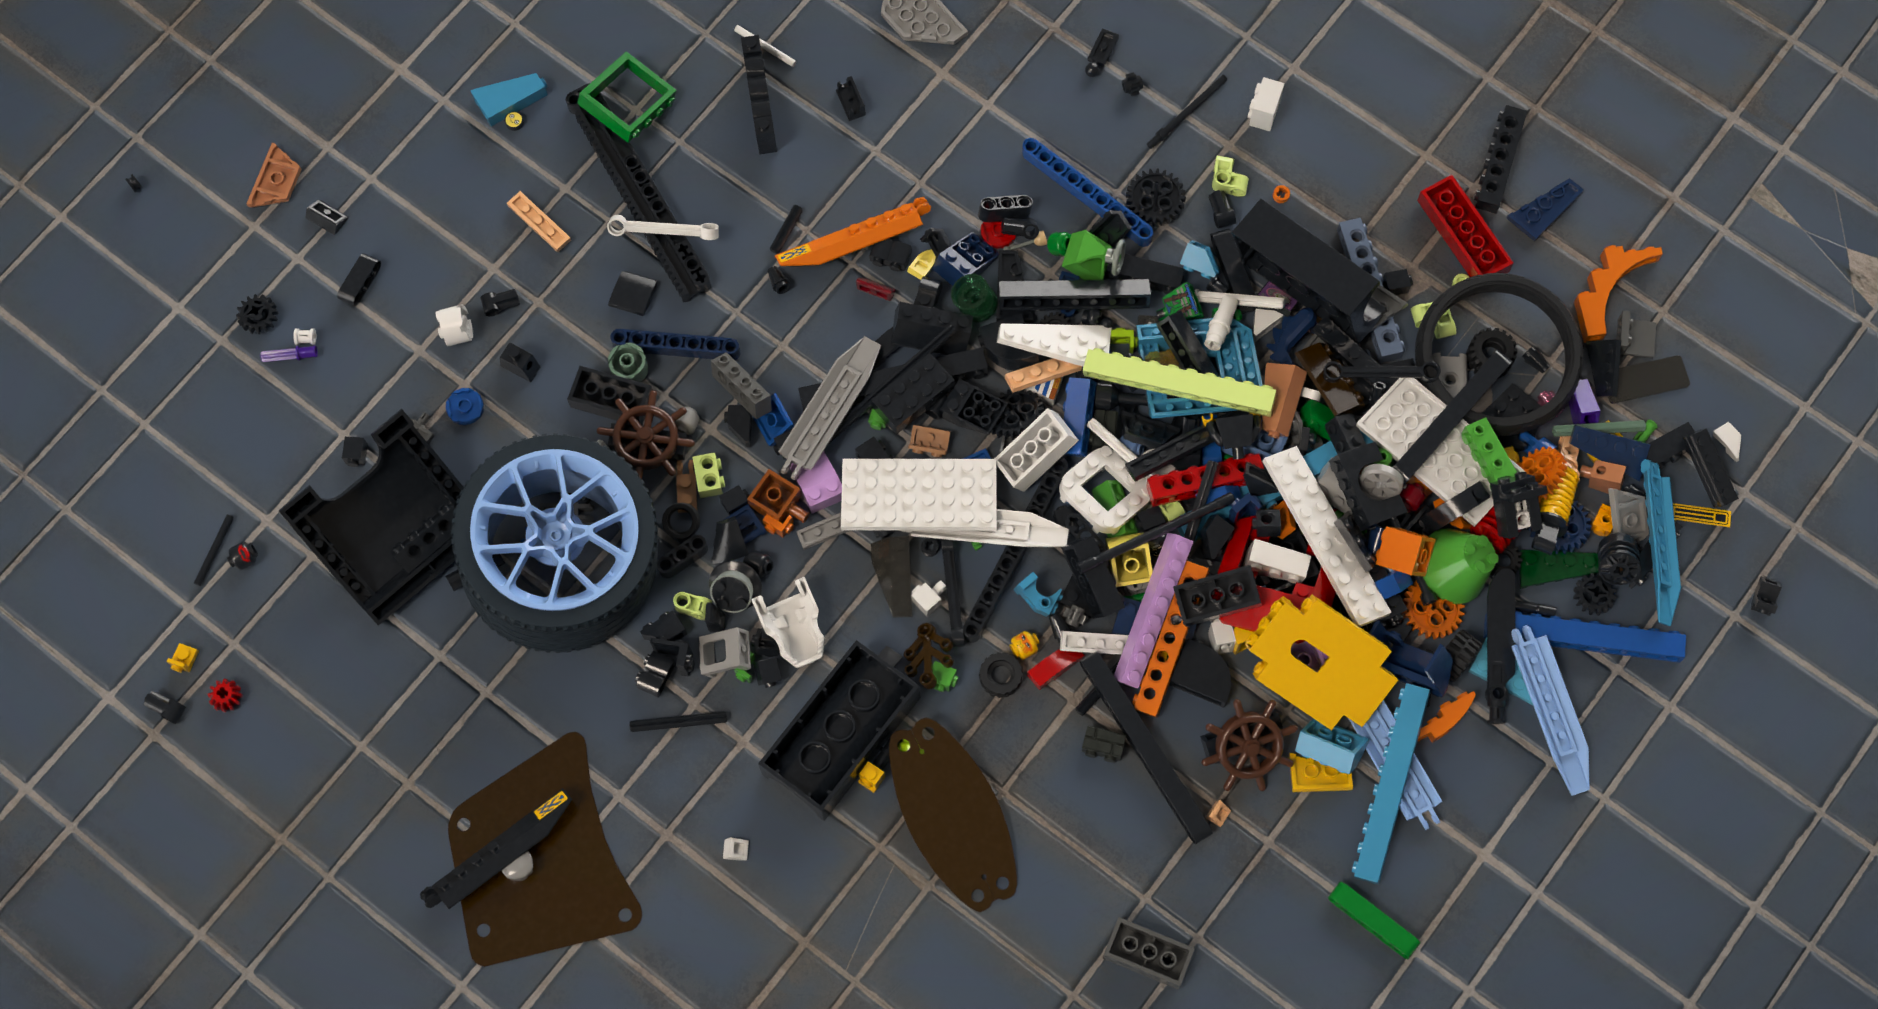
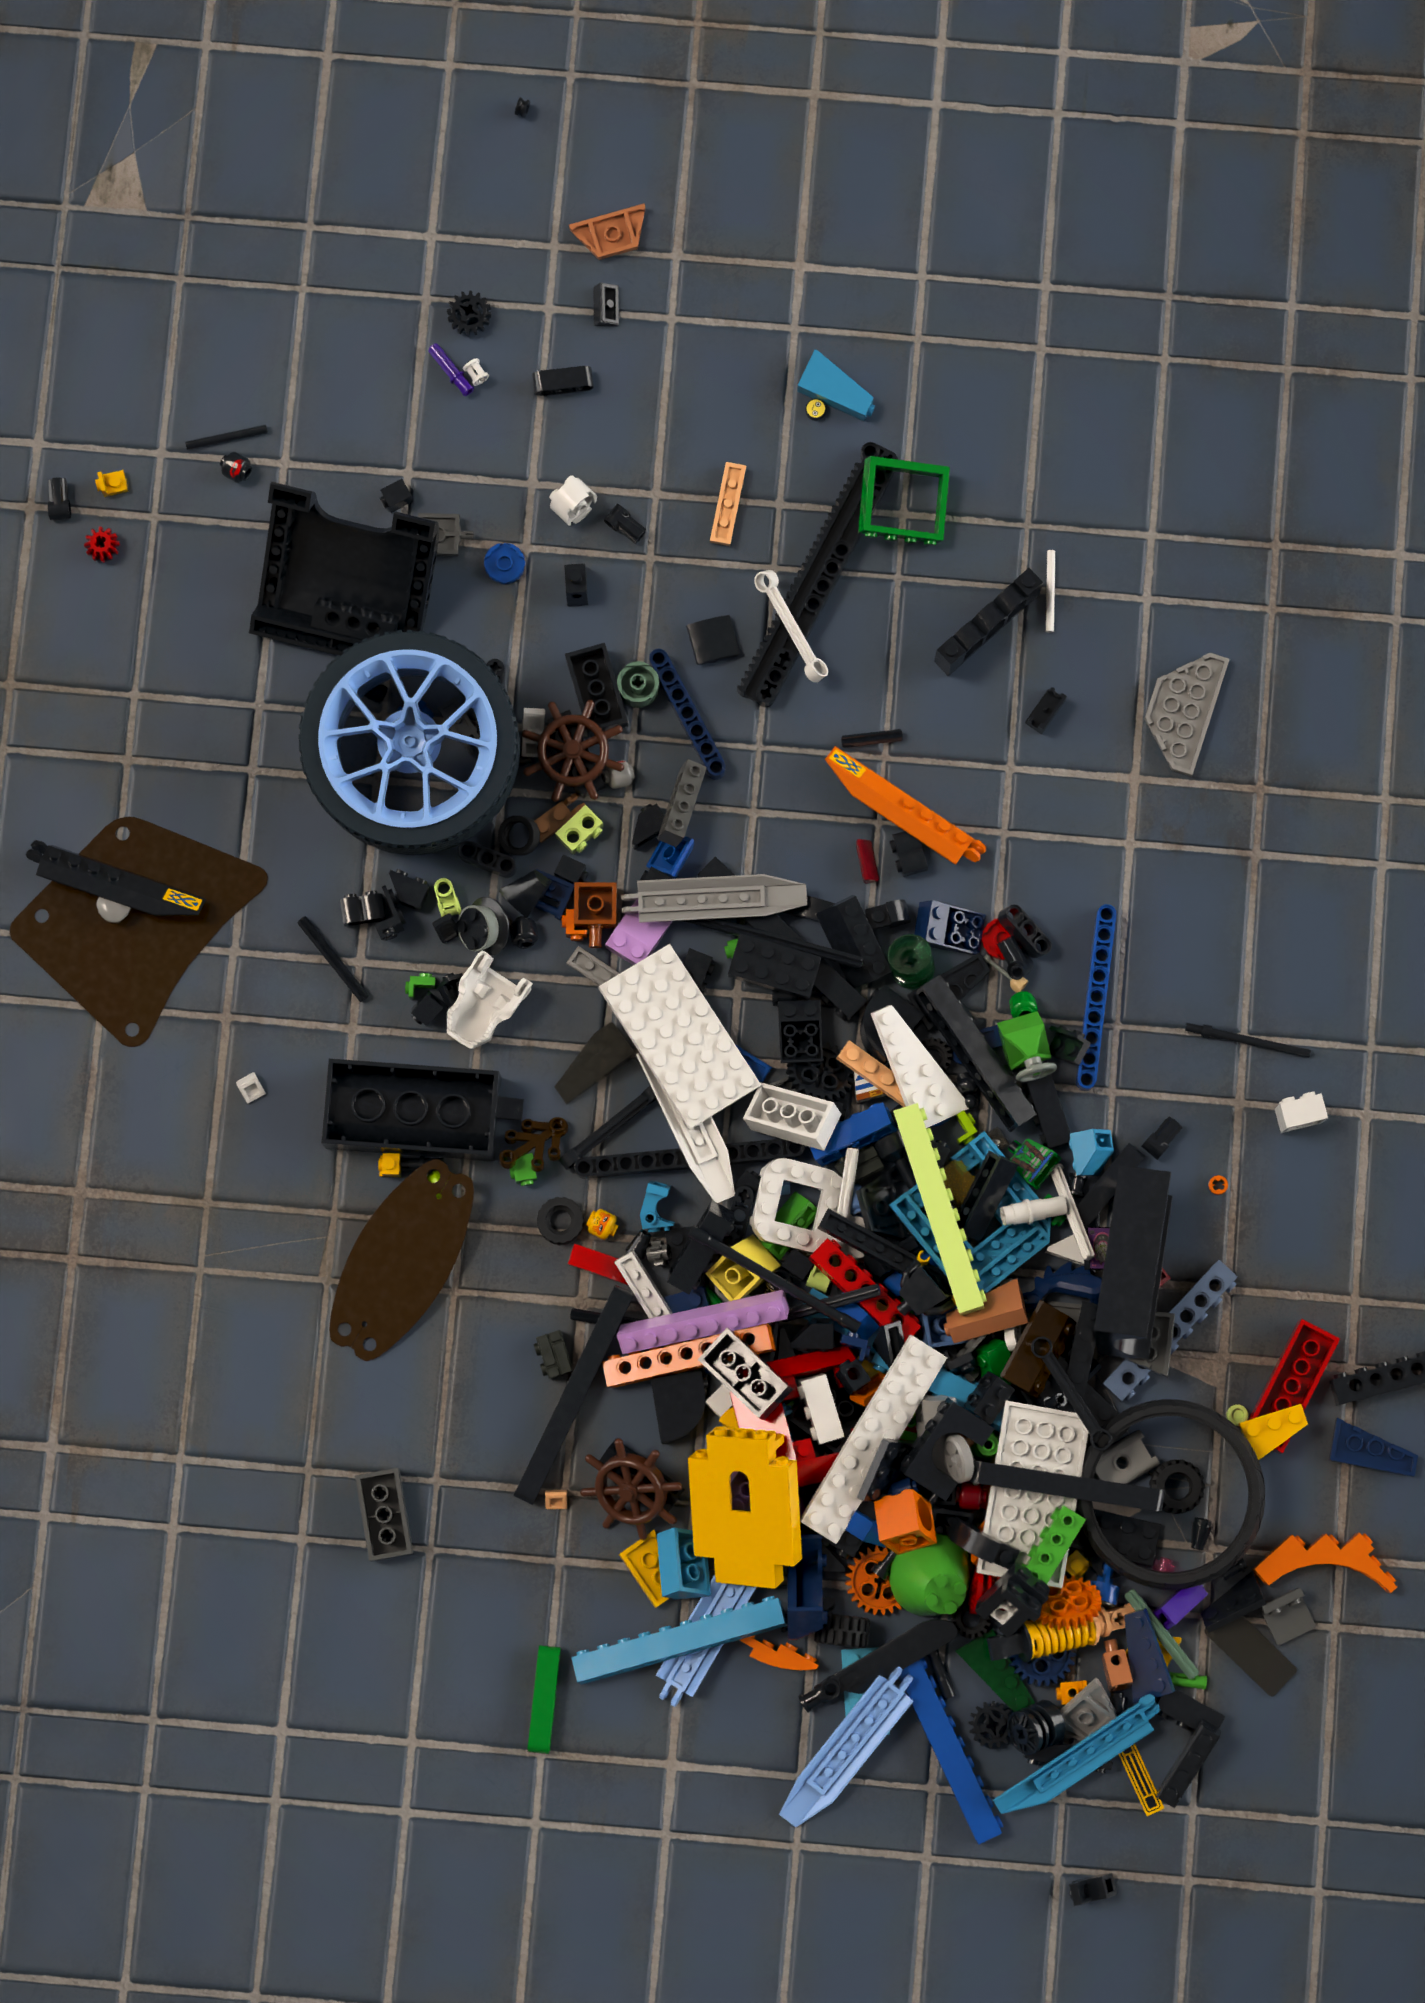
camera: 55 degrees right, 10 degrees up
(737, 651) = (424, 969): light grey window -> none
(778, 280) = (814, 765): black cone -> none
(922, 264) = (919, 889): light yellow plate -> none
(927, 598) = (589, 1107): white brick -> none
(929, 440) = (744, 1011): medium nougat bracket -> none
(935, 546) = (636, 1081): black bush -> none
(937, 240) = (950, 889): black bracket -> none
(1101, 52) = (1256, 917): black plate -> none
(1132, 84) = (1240, 969): black gear -> none
(1173, 198) = (1124, 1049): black gear -> none
(1234, 183) = (1206, 1114): yellowish green piece -> none
(1397, 281) = (1194, 1352): black brick -> none
(1445, 325) = (1176, 1425): yellowish green piece -> none
(1492, 253) = (1273, 1429): none -> yellow wing
(1730, 438) = (1237, 1766): white slope -> none

